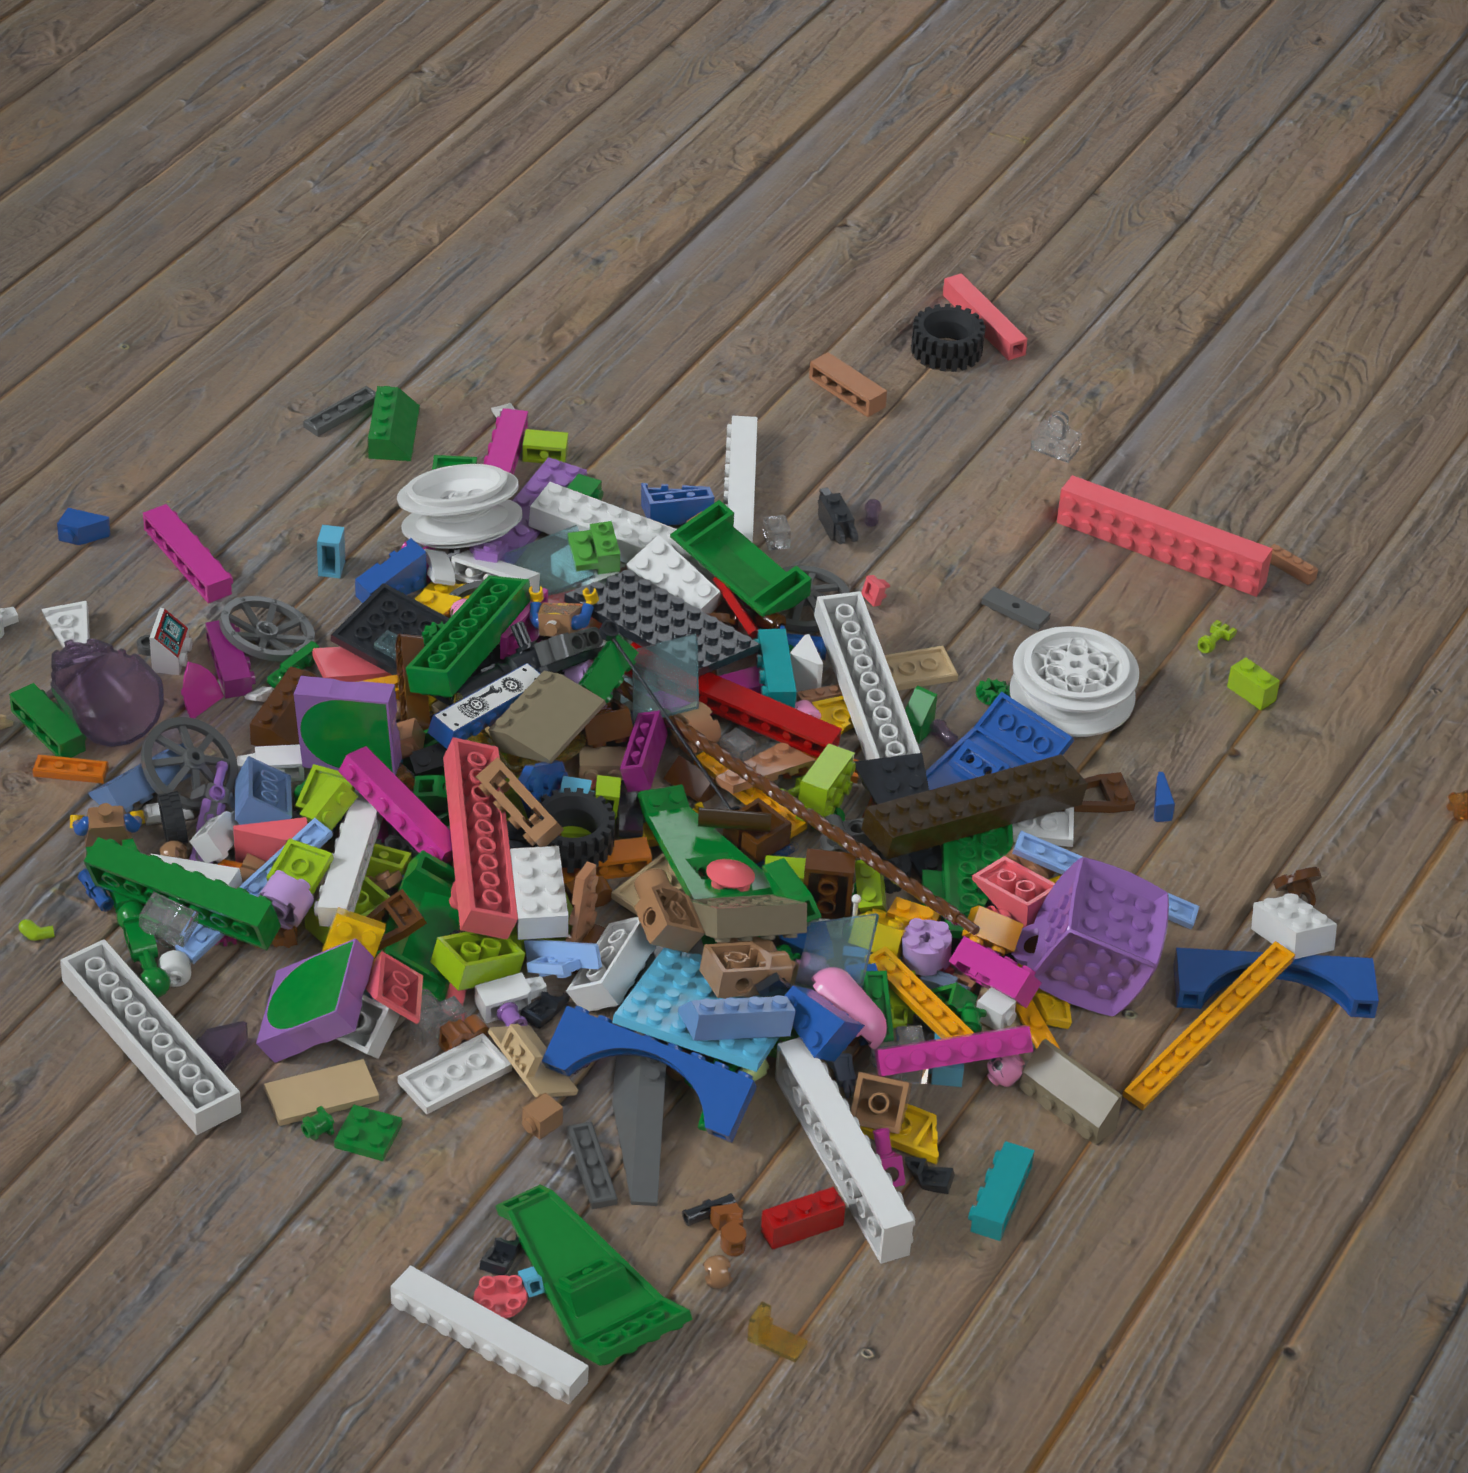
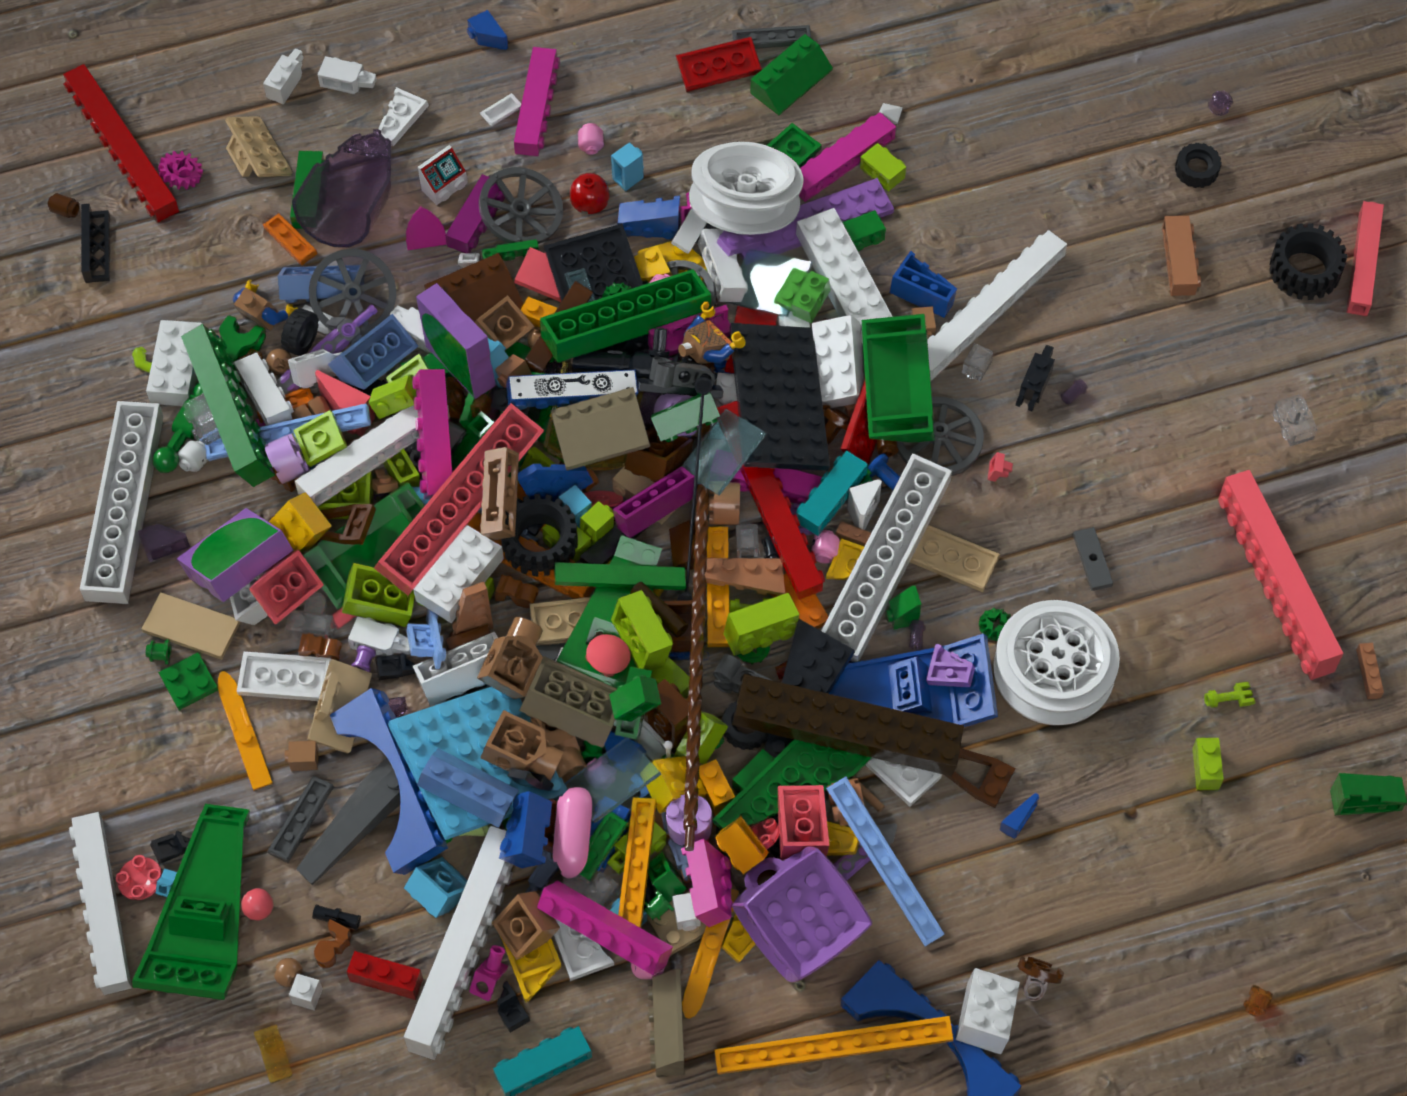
camera: 45 degrees right, 20 degrees up
(74, 908) = (171, 370): none -> white brick
(160, 577) = (501, 110): none -> white tile
(270, 553) = (590, 138): none -> bright pink head
(313, 591) = (589, 193): none -> red cylinder
(319, 449) = (718, 64): none -> red tile
(463, 1138) = (243, 732): none -> light orange piece
(633, 1241) = (257, 904): none -> coral piece
(667, 822) = (619, 576): none -> green tile
(742, 836) = (642, 631): none -> lime brick
(750, 1274) = (305, 992): none -> white brick
(761, 274) = (1220, 103): none -> clear purple piece
(762, 743) = (770, 551): none -> black pin
(771, 1132) = (436, 886): none -> medium azure slope
(791, 332) = (1202, 152): none -> black tyre
(802, 872) = (635, 698): none -> green brick
(943, 1100) = (580, 953): none -> white wing
(1001, 733) = (949, 669): none -> medium lavender wing
(1380, 636) = (1367, 794): none -> green wedge

